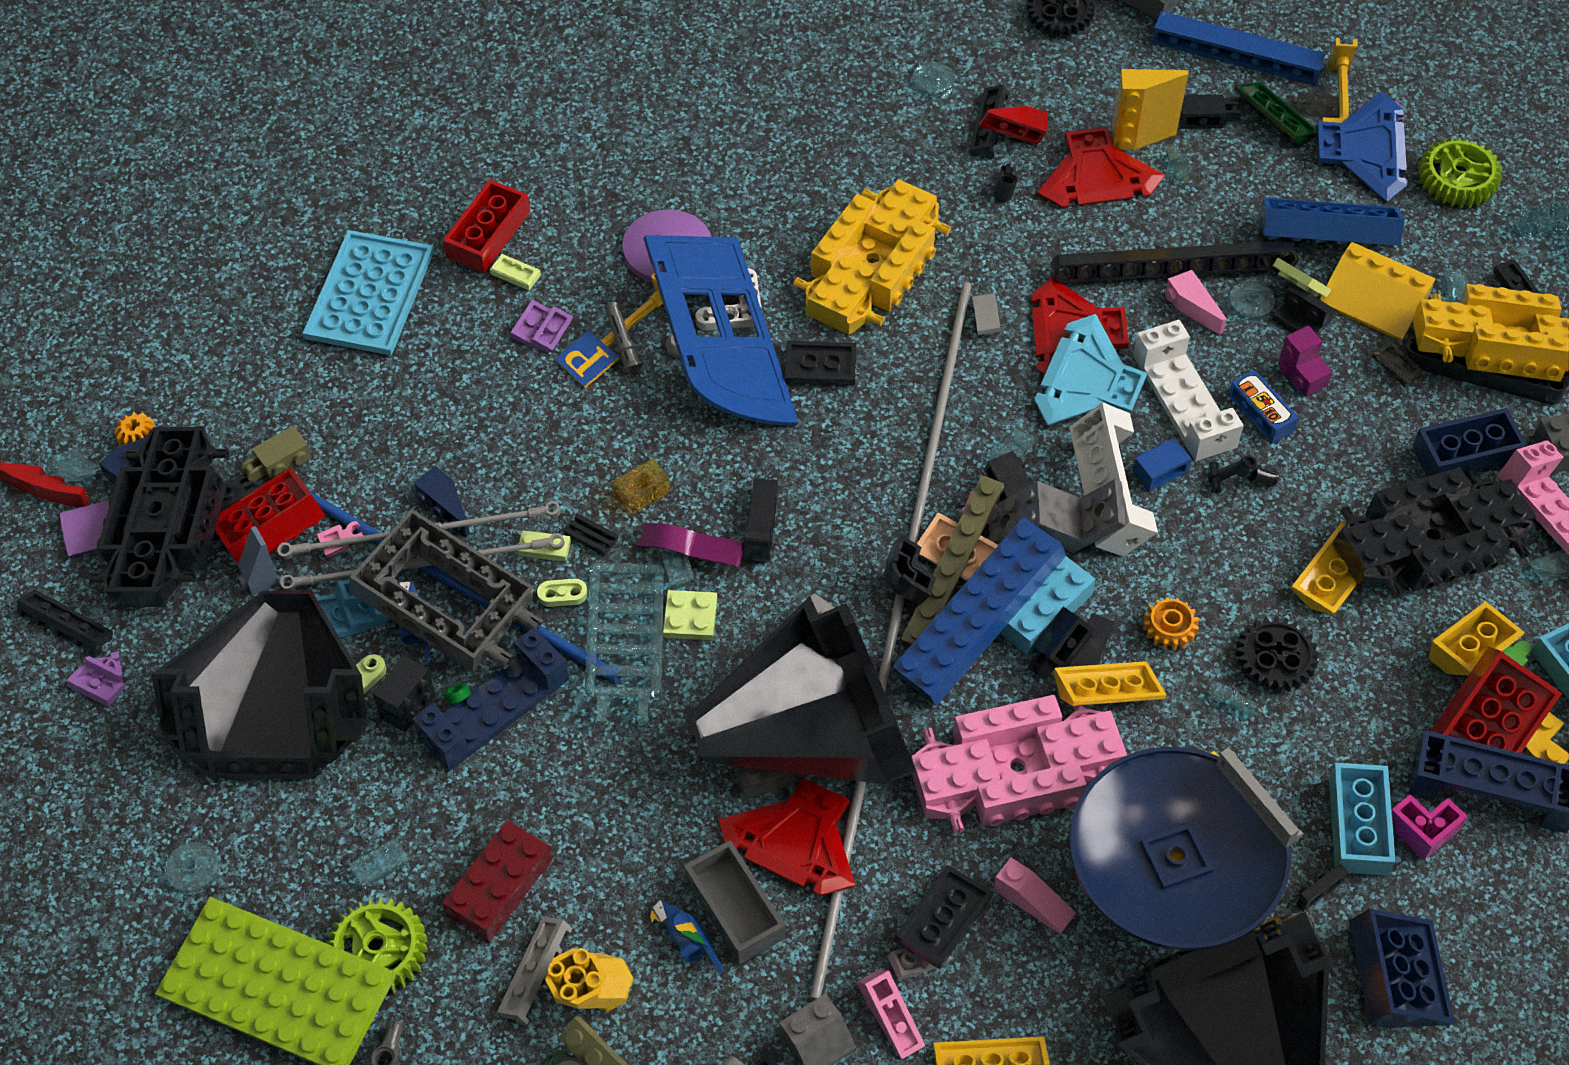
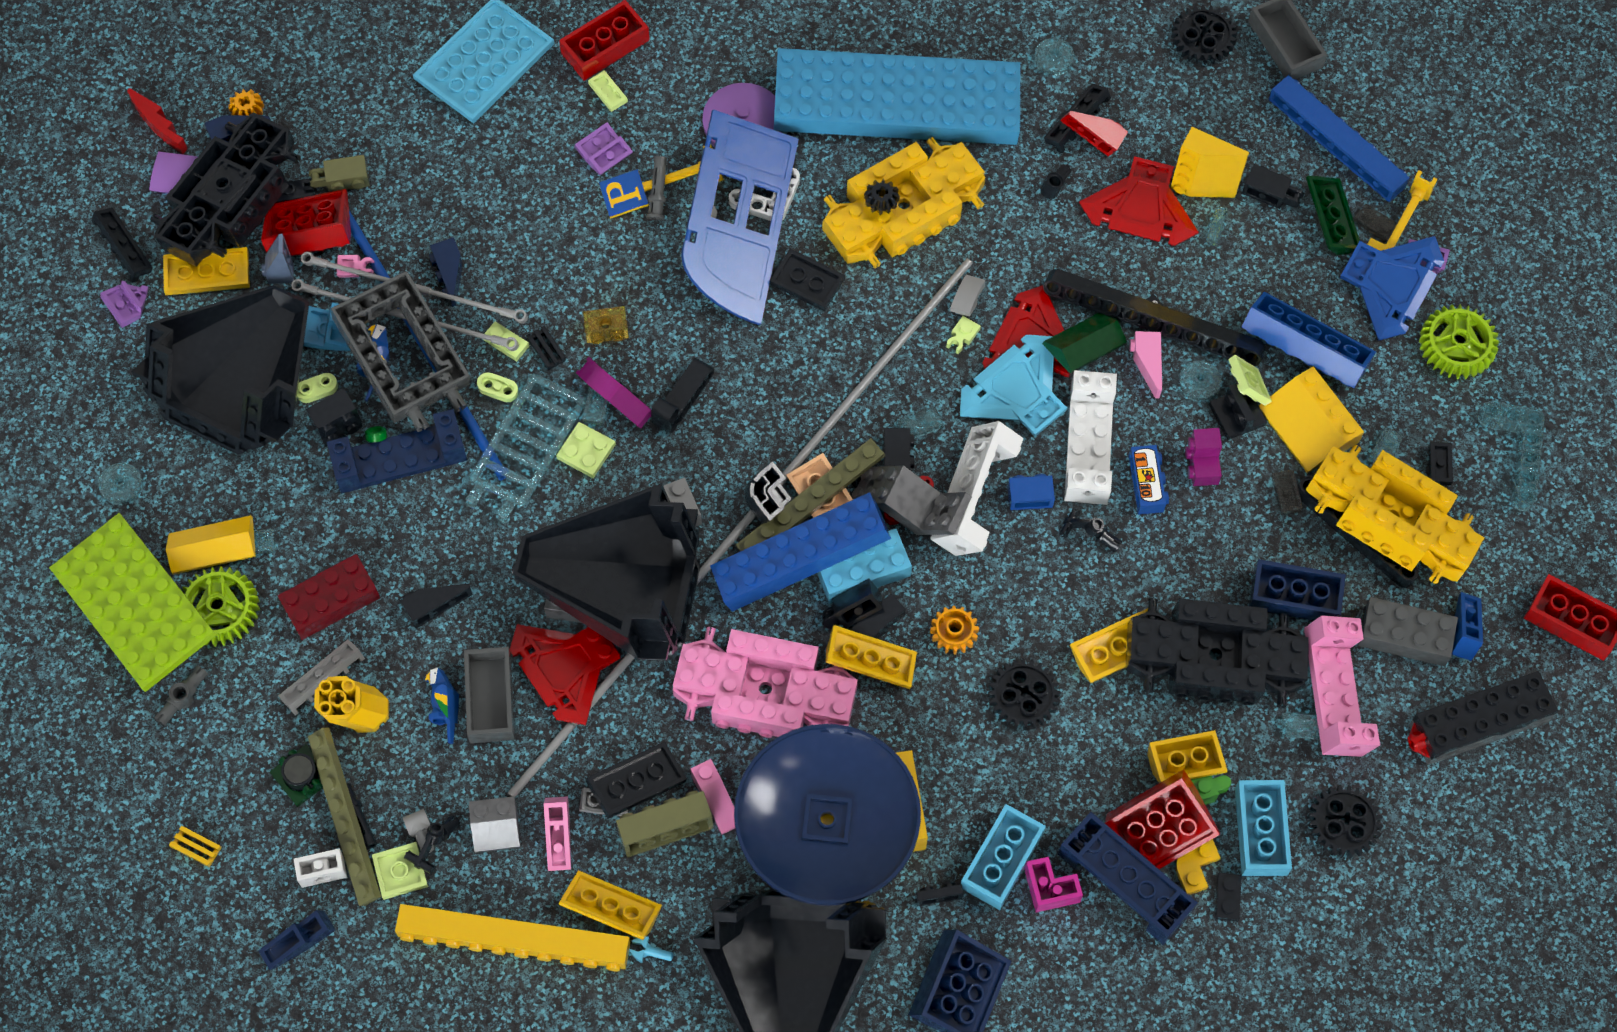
camera: 25 degrees right, 10 degrees up
(72, 465) = (185, 116): clear light blue piece -> none
(186, 608) = (210, 275): none -> yellow plate
(334, 885) = (211, 545): none -> yellow slope
(614, 836) = (430, 602): none -> black slope
(808, 166) = (897, 96): none -> dark azure brick
(856, 252) = (881, 196): none -> black gear
(1001, 946) = (664, 823): none -> olive brick
(1002, 350) = (963, 333): none -> yellowish green plate
(1127, 306) = (1086, 341): none -> dark green slope
(1233, 699) = (966, 714): clear light blue axle -> none
(1258, 798) = (906, 805): light grey hinge -> none

